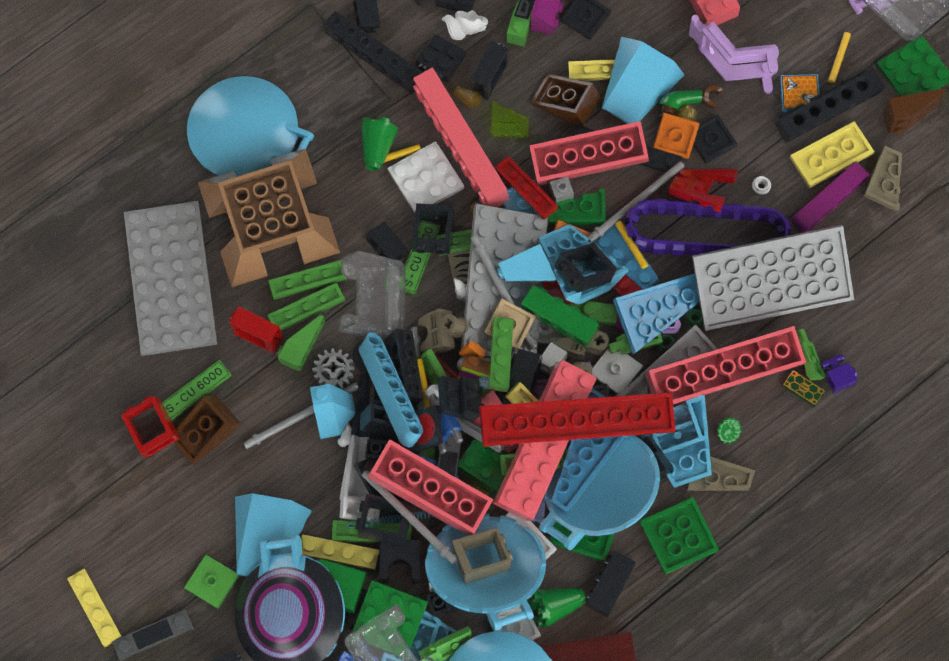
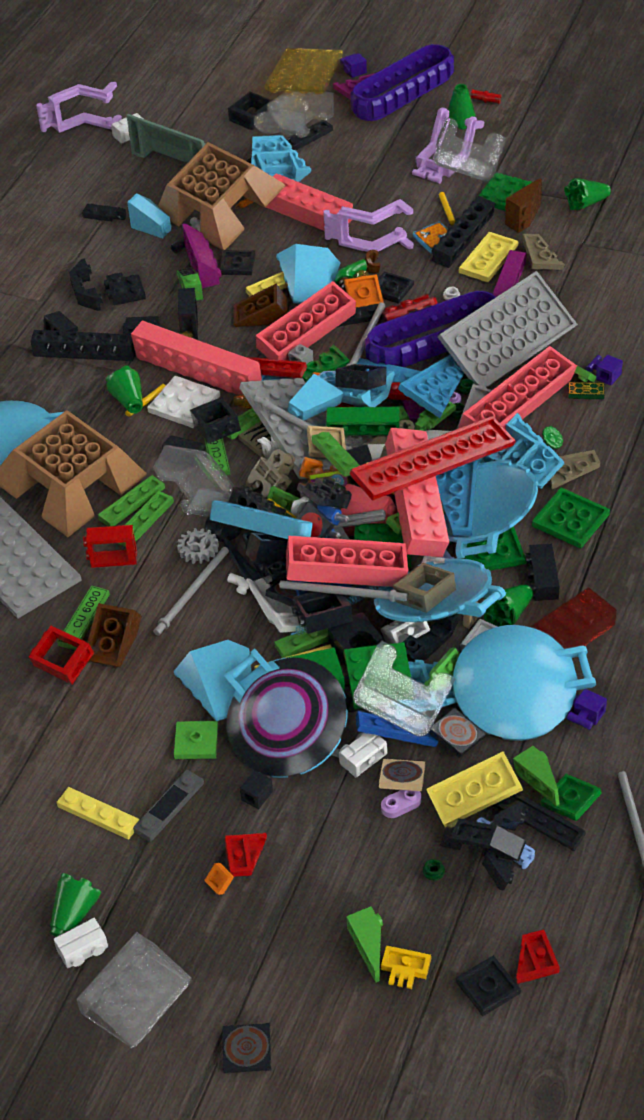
camera: 30 degrees left, 25 degrees down
(299, 346) = (156, 545): bright green slope -> none
(332, 409) = (215, 563): medium azure slope -> none
(464, 24) = (146, 300): white hair -> none
(508, 123) = (227, 340): clear neon green wing -> none
(631, 244) = (384, 362): yellow bar -> none

